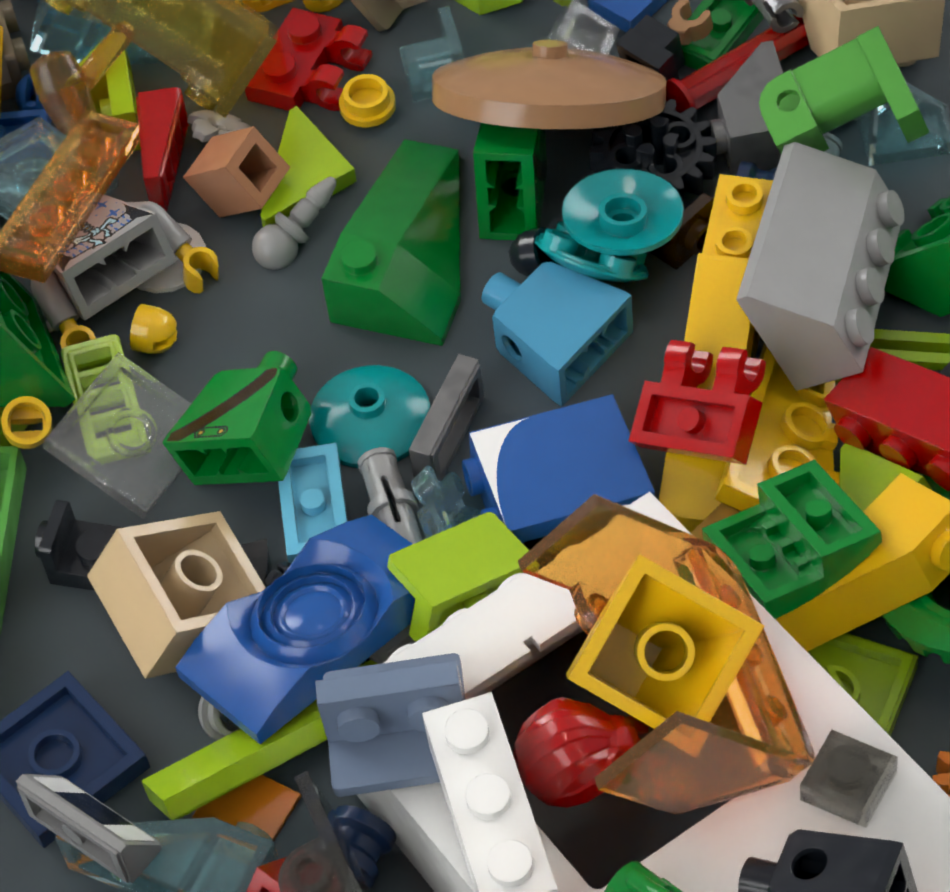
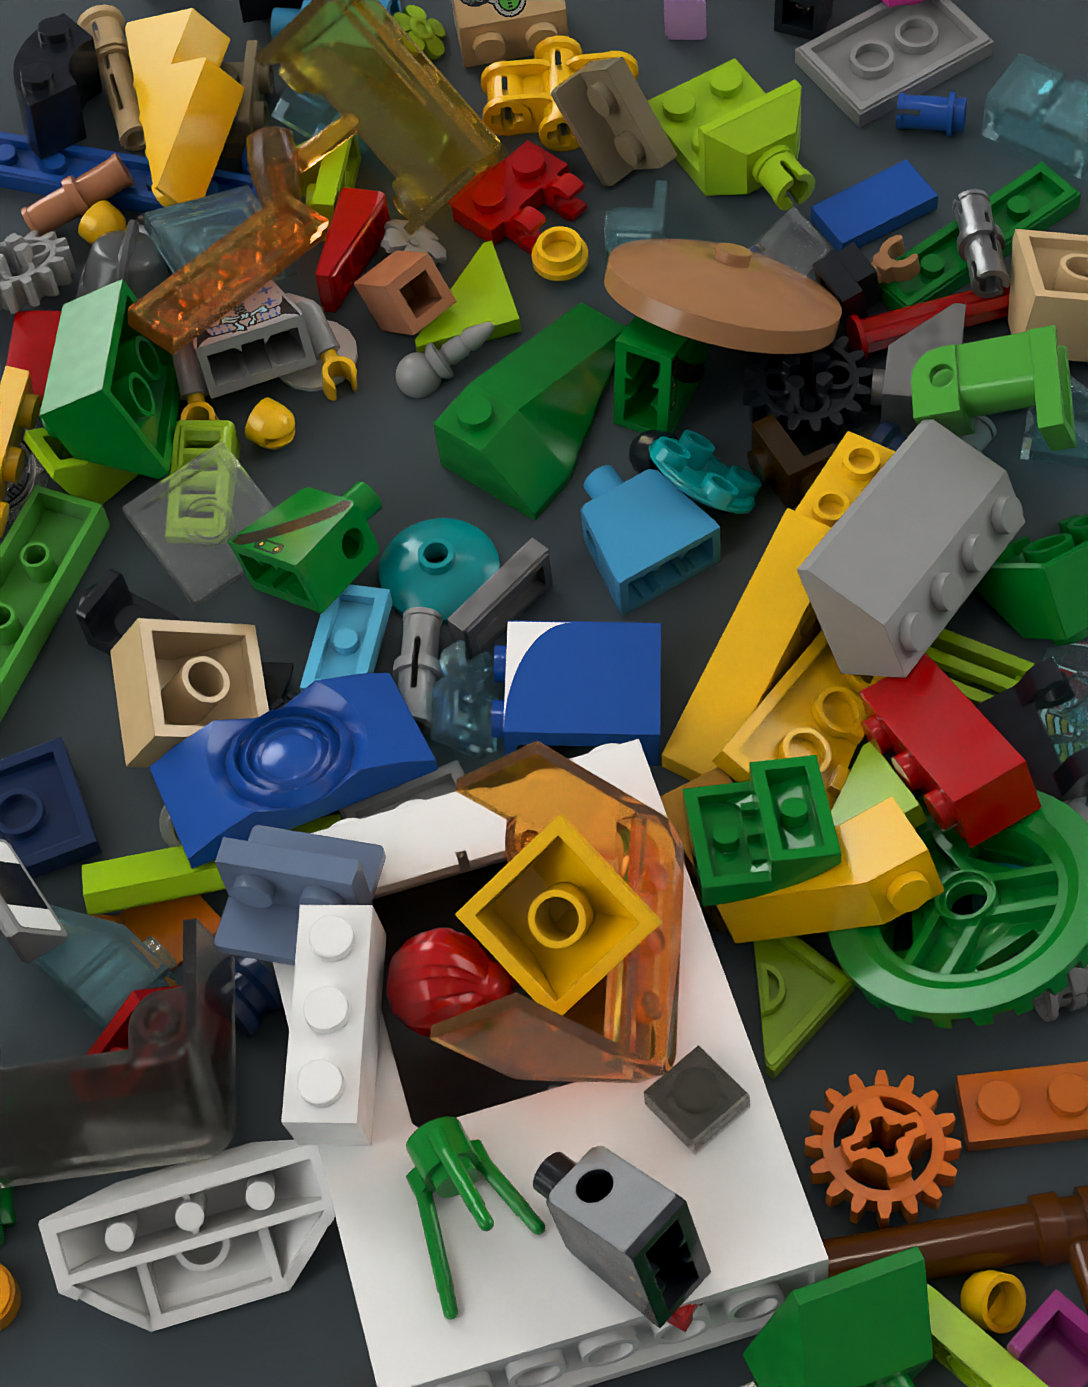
camera: 20 degrees right, 5 degrees up
(26, 411) = (114, 473): yellow hinge -> none
(455, 569) = (429, 752): lime panel -> none
(622, 212) = (741, 441): teal dish -> none
(699, 421) = (720, 679): red plate -> none

